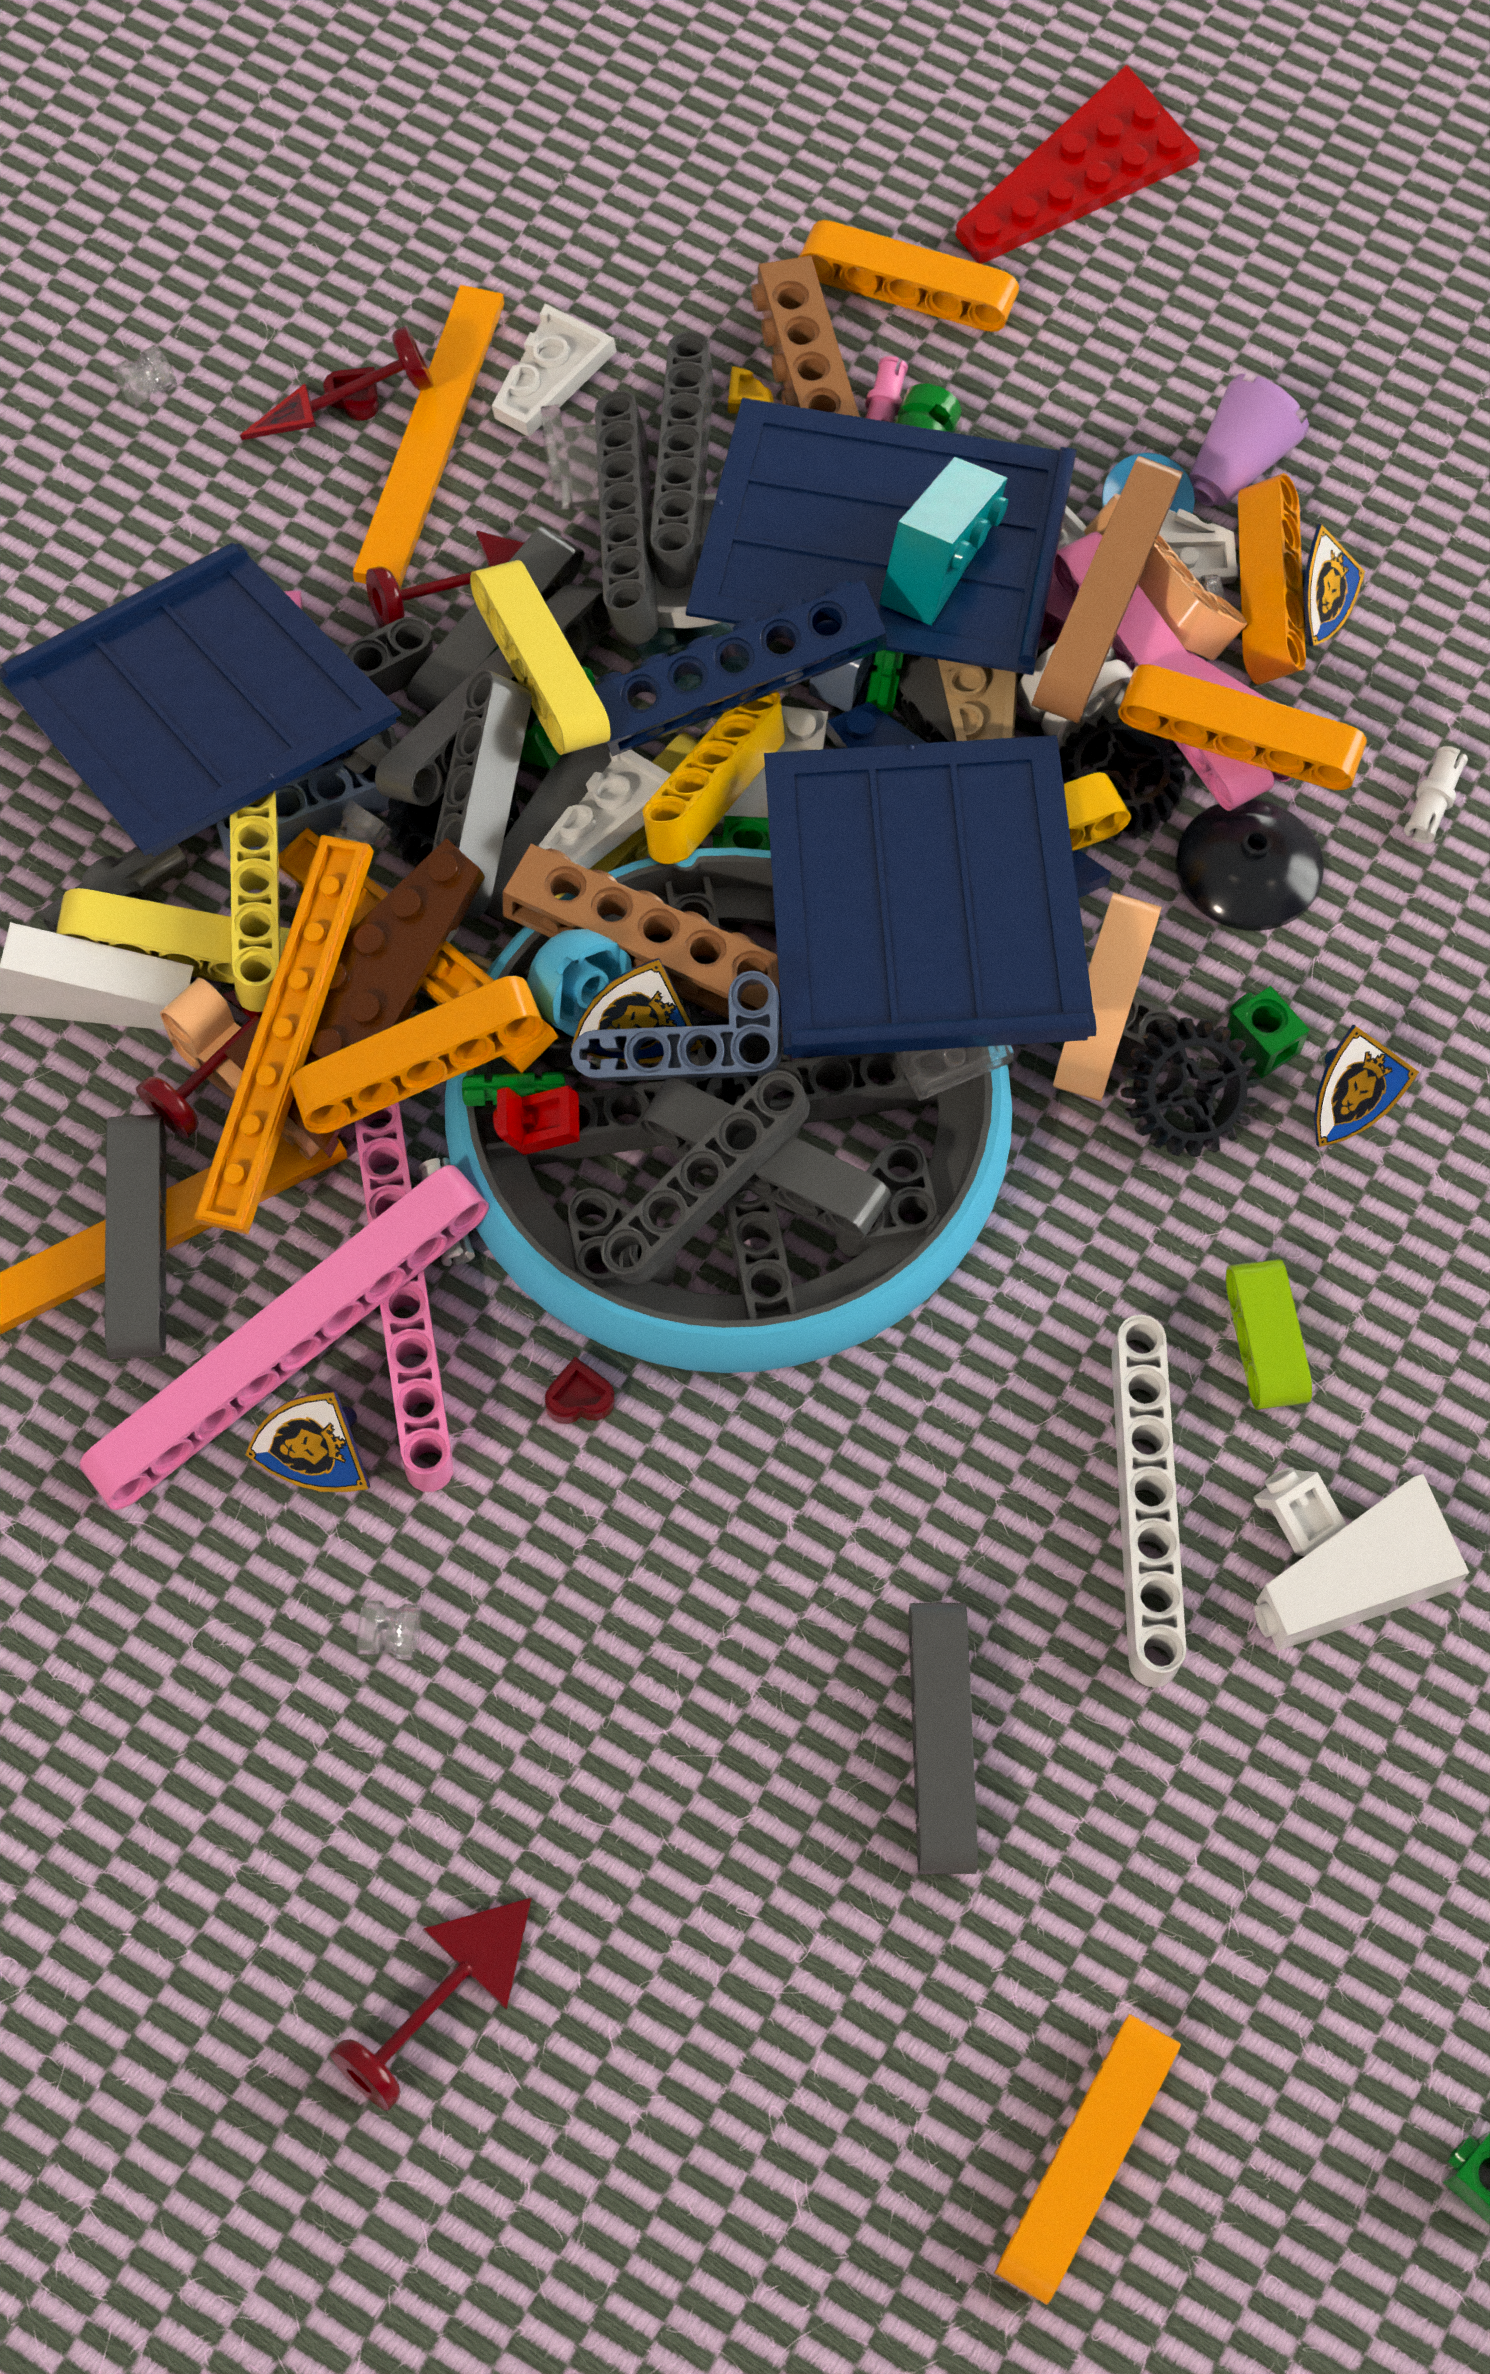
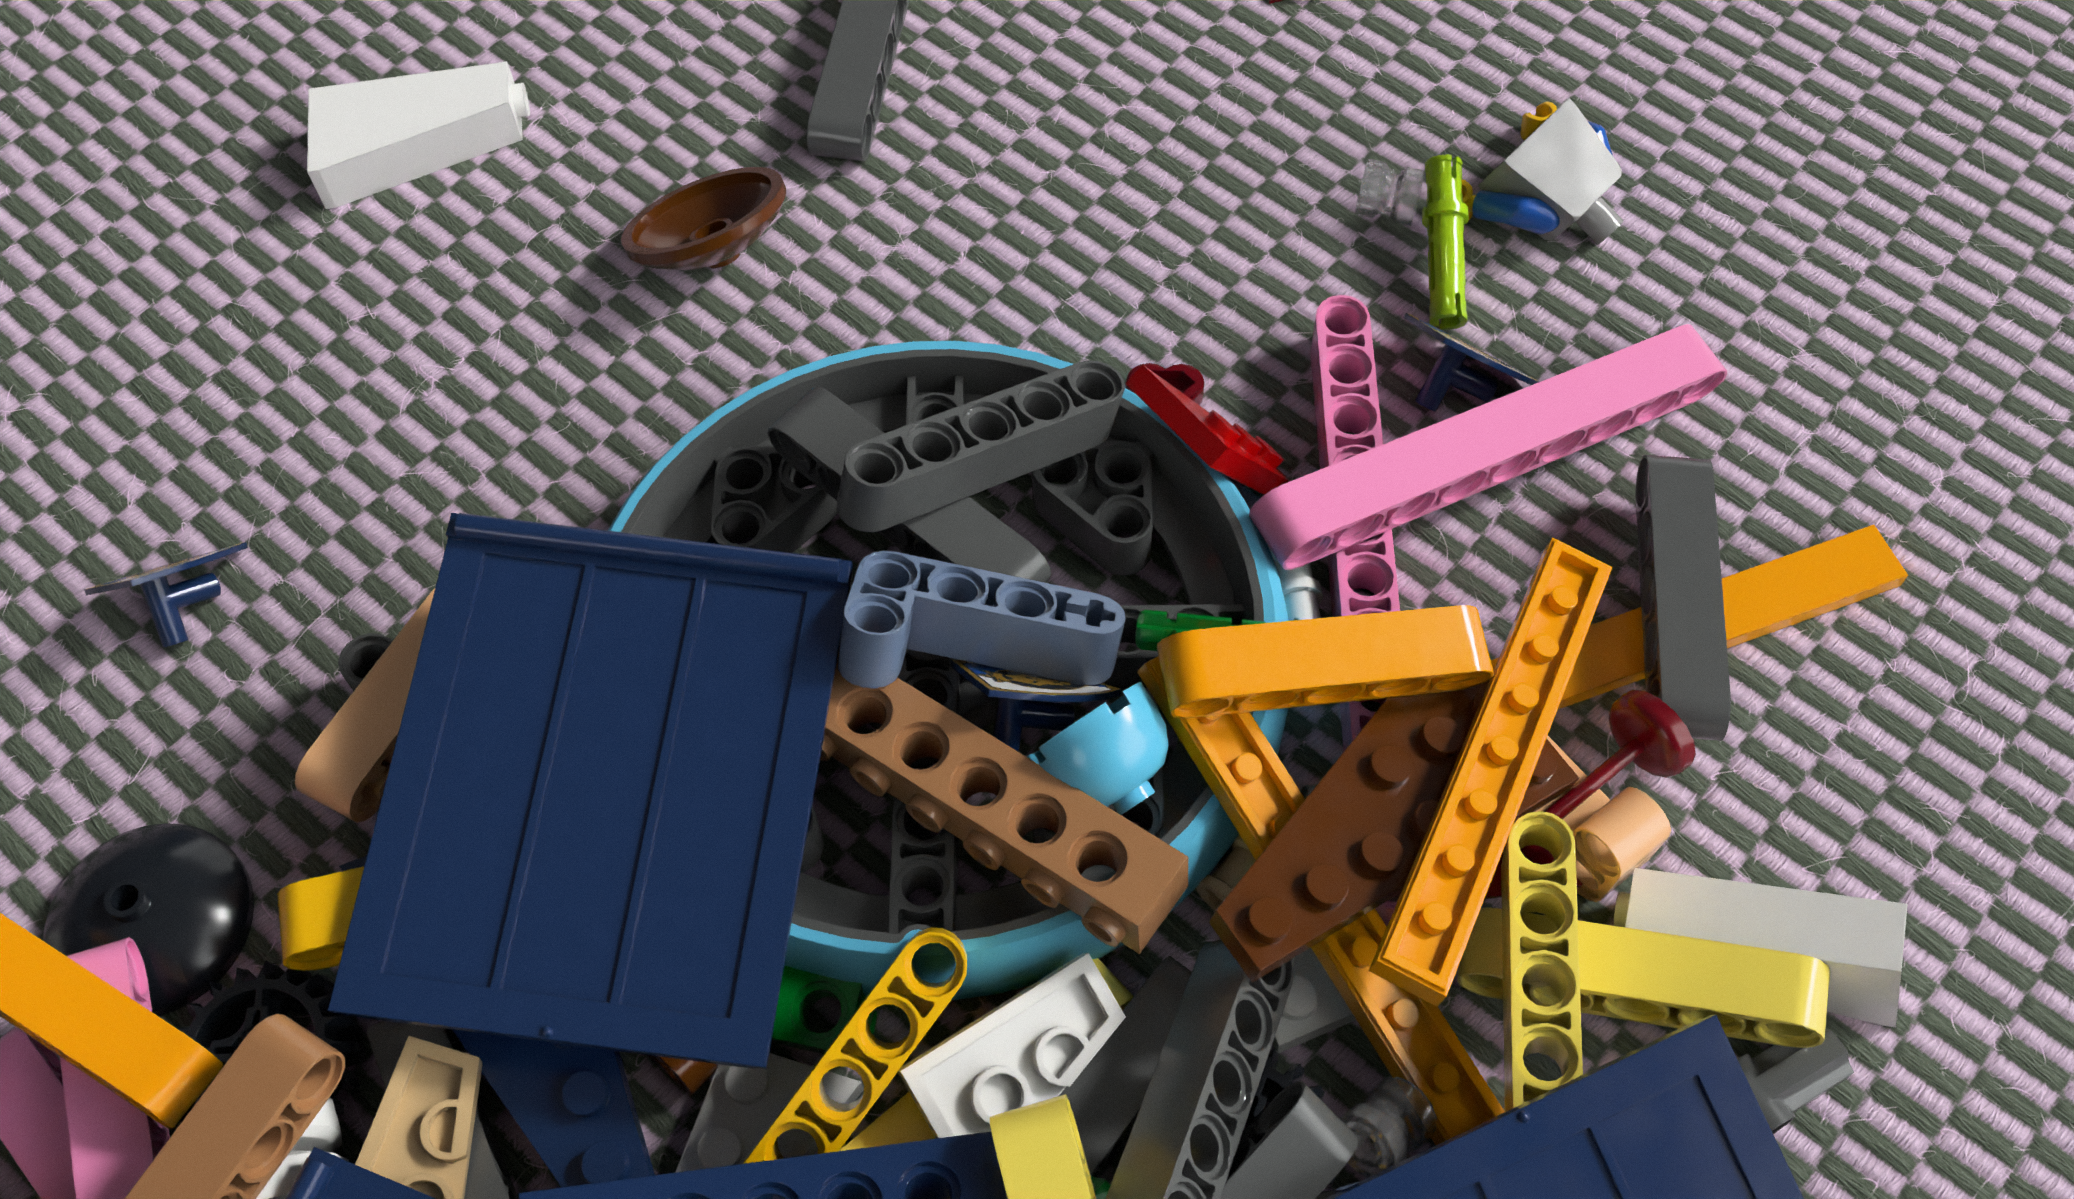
camera: 165 degrees left, 5 degrees down
(234, 1656) = (1552, 177): none -> torso
(335, 1587) = (1445, 227): none -> lime pin
(523, 1279) = (1209, 435): none -> red wing
(538, 1119) = (1177, 579): red bracket -> none
(1059, 1489) = (706, 220): none -> reddish brown dish
(1145, 1522) = (588, 217): white beam -> none
(1199, 1106) = (357, 583): black gear -> none
(1268, 1334) = (398, 344): lime beam -> none
(1272, 1048) = (224, 651): green brick -> none
(1301, 1508) = (445, 192): white bracket -> none

